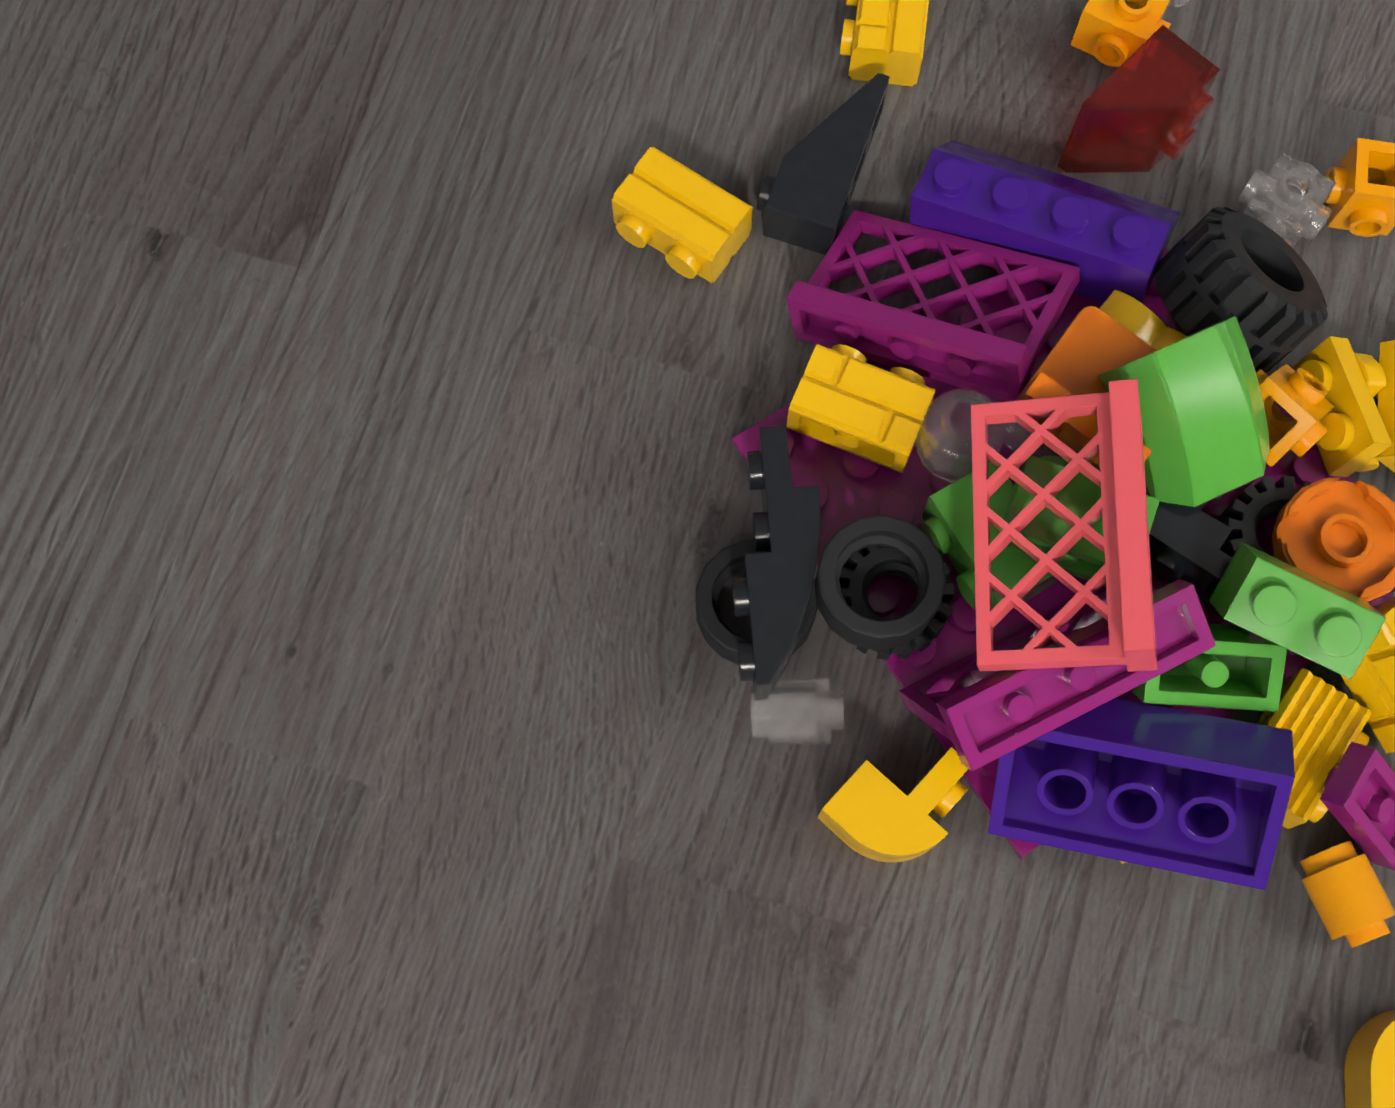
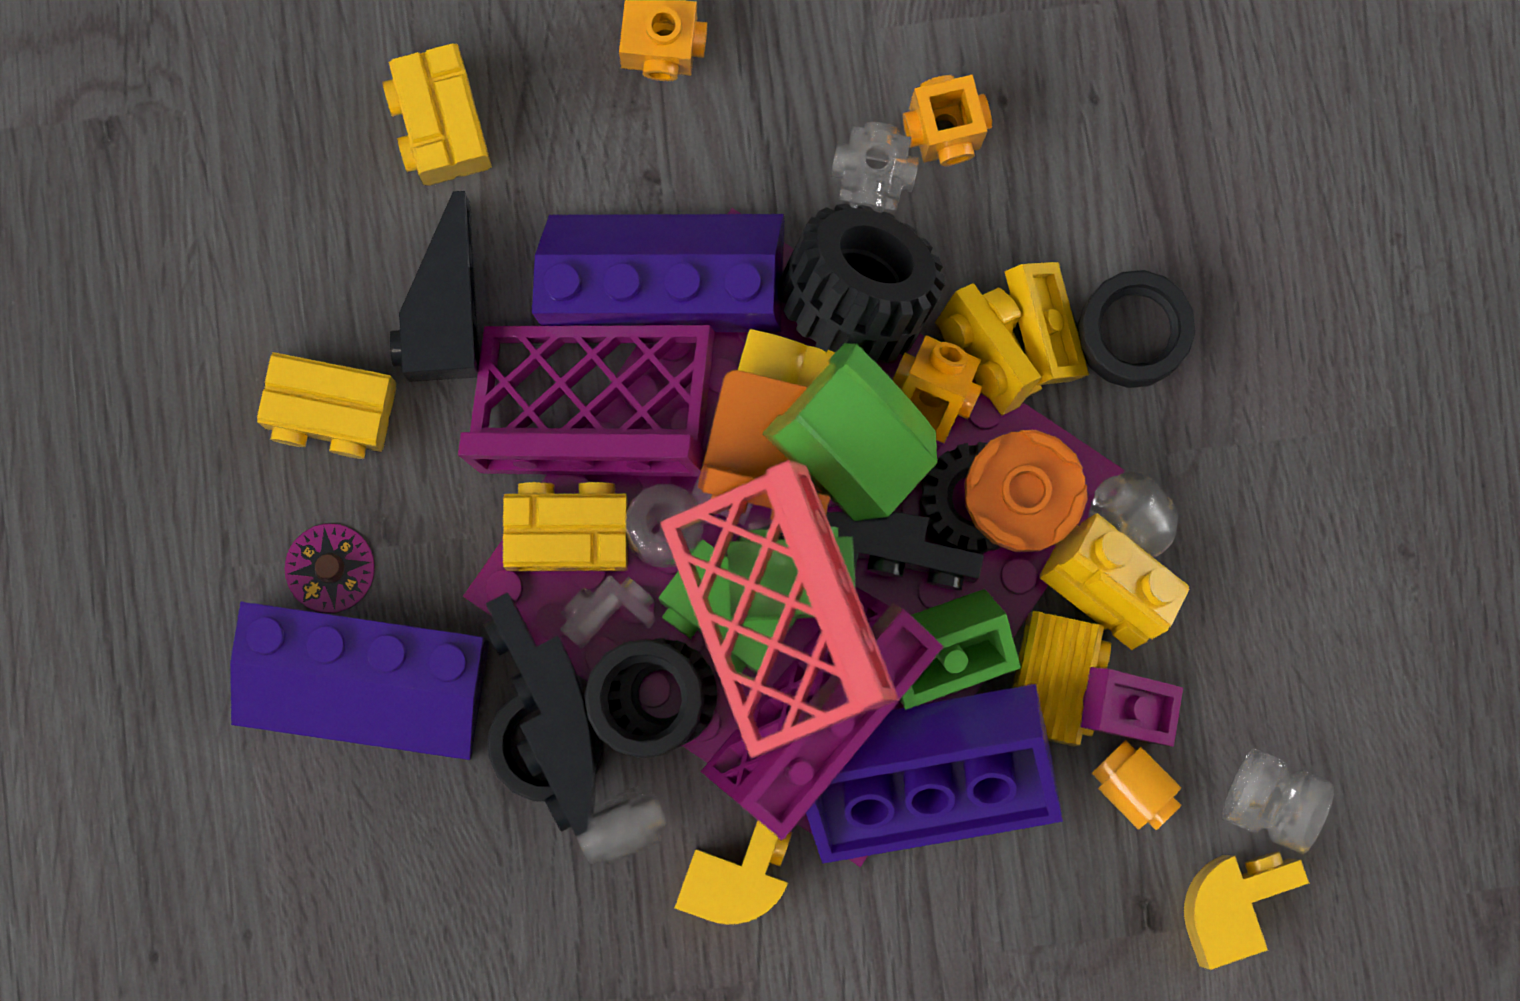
camera: 30 degrees left, 10 degrees up
(601, 468) = (356, 680): none -> dark purple slope
(618, 366) = (329, 568): none -> piece
(857, 490) = (590, 610): none -> clear bracket
(1142, 109) = (711, 130): clear red slope -> none
(1296, 610) = (1001, 580): bright green brick -> none

